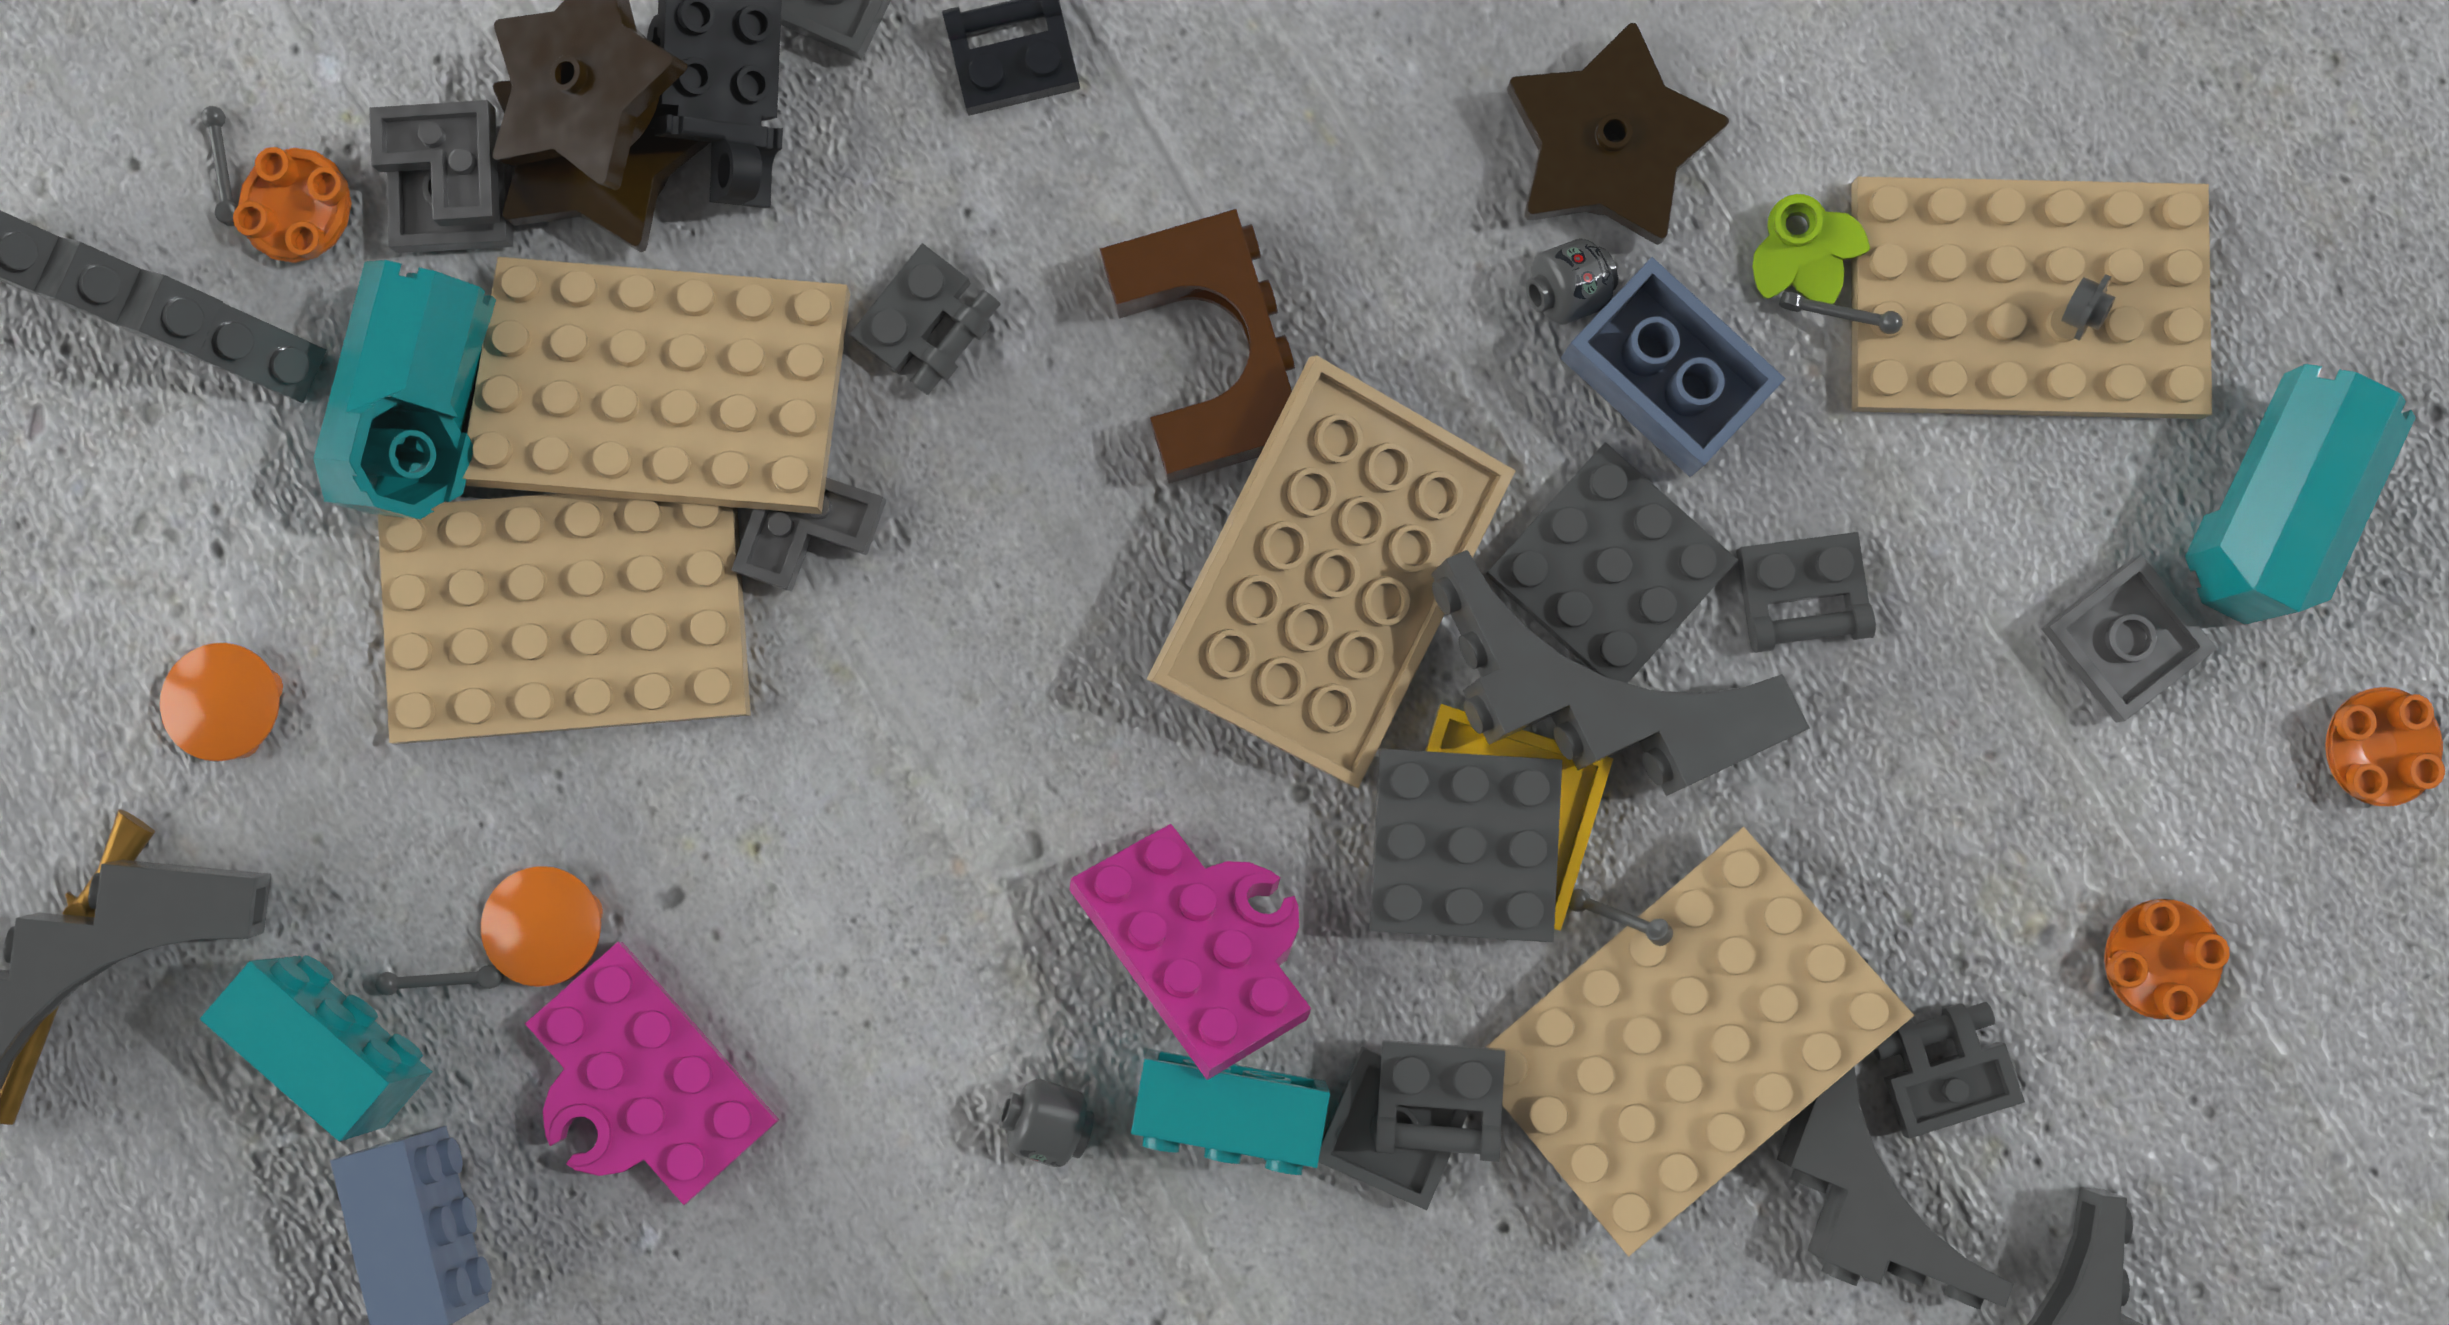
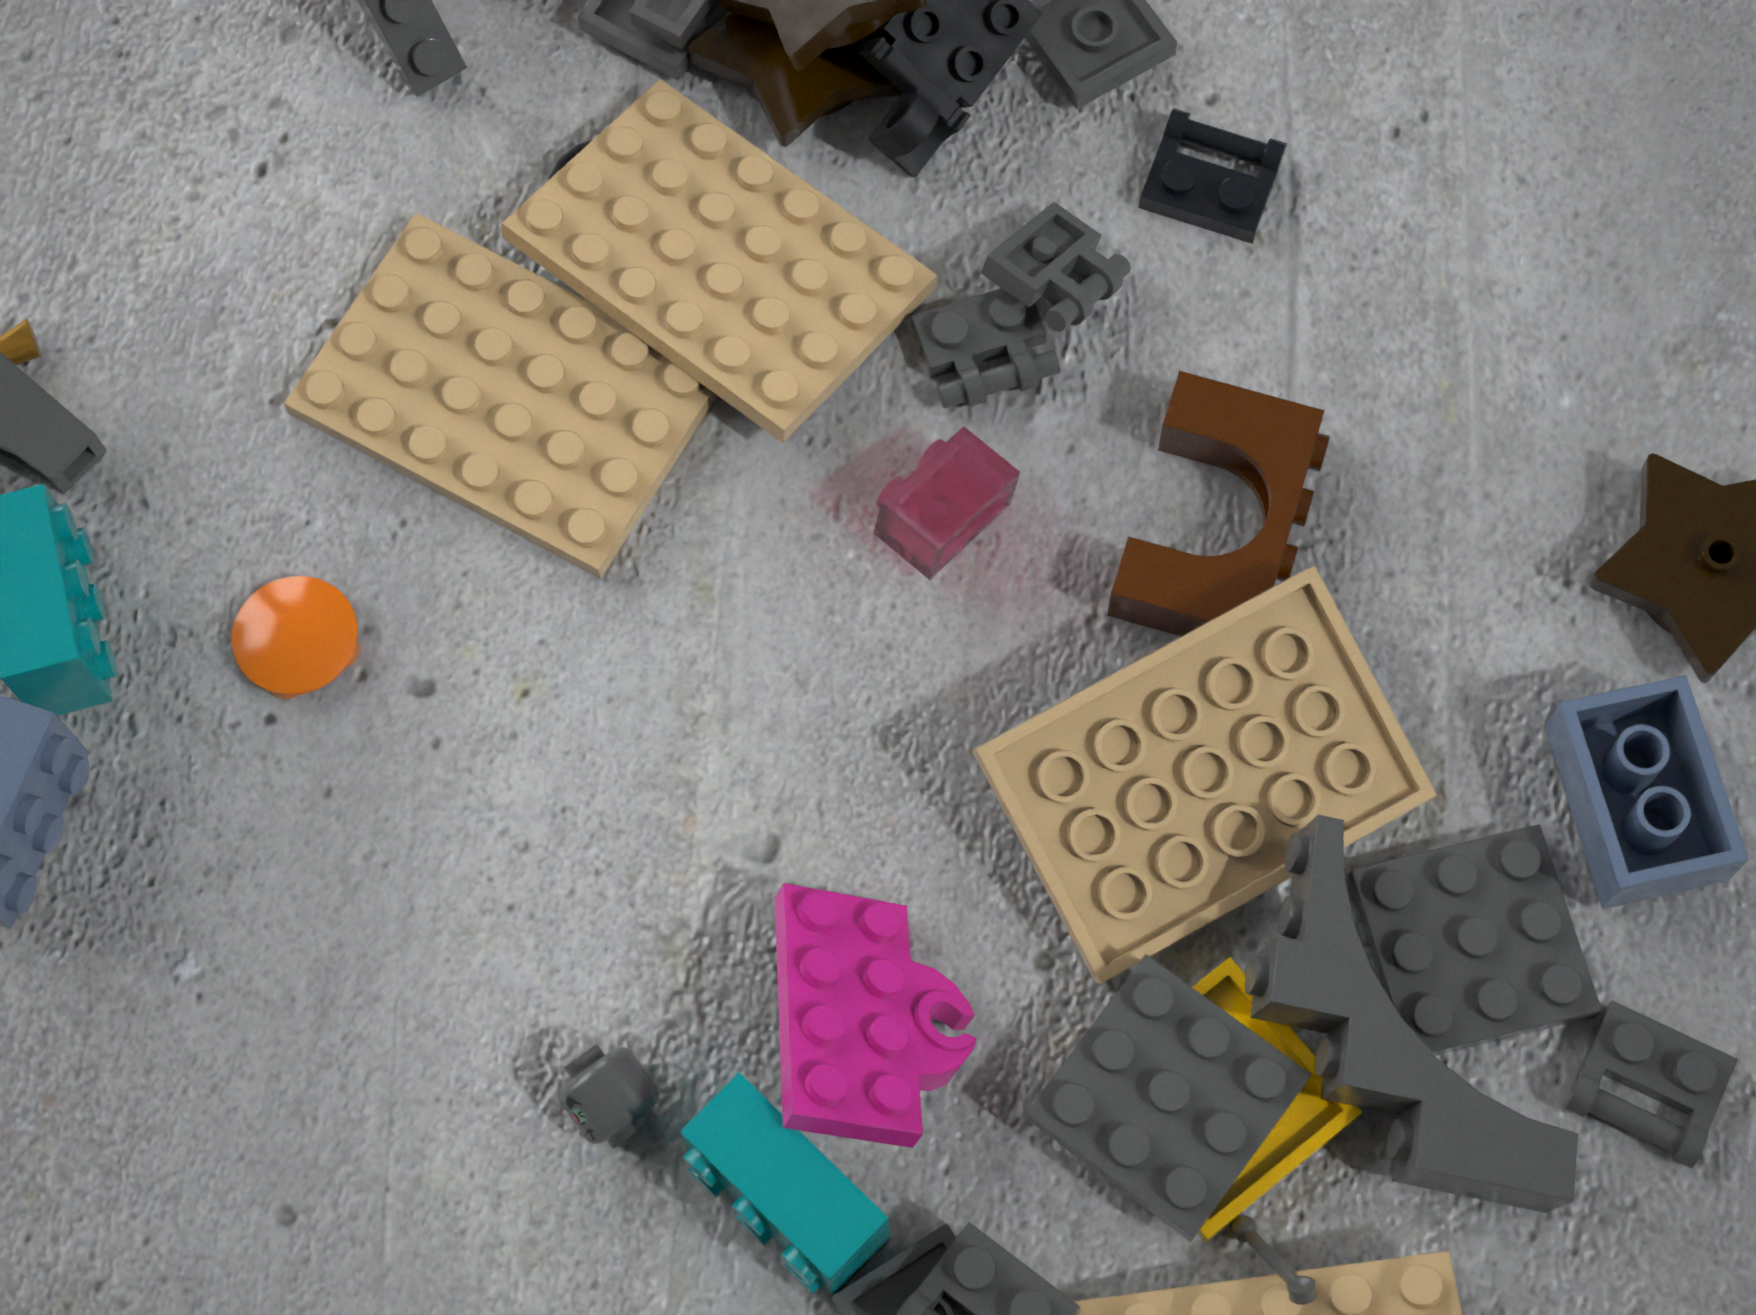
camera: 35 degrees right, 15 degrees down
(220, 702) = (173, 286): orange dish -> none
(403, 393) = (505, 128): teal brick -> none
(487, 977) = (219, 649): dark grey hinge -> none
(643, 1080) = (284, 824): dark pink plate -> none
(779, 539) = (732, 444): flat silver plate -> none
(922, 213) = (1041, 257): none -> dark grey plate
(983, 479) = (944, 501): none -> clear pink brick
(1571, 281) = (1596, 658): dark grey head -> none

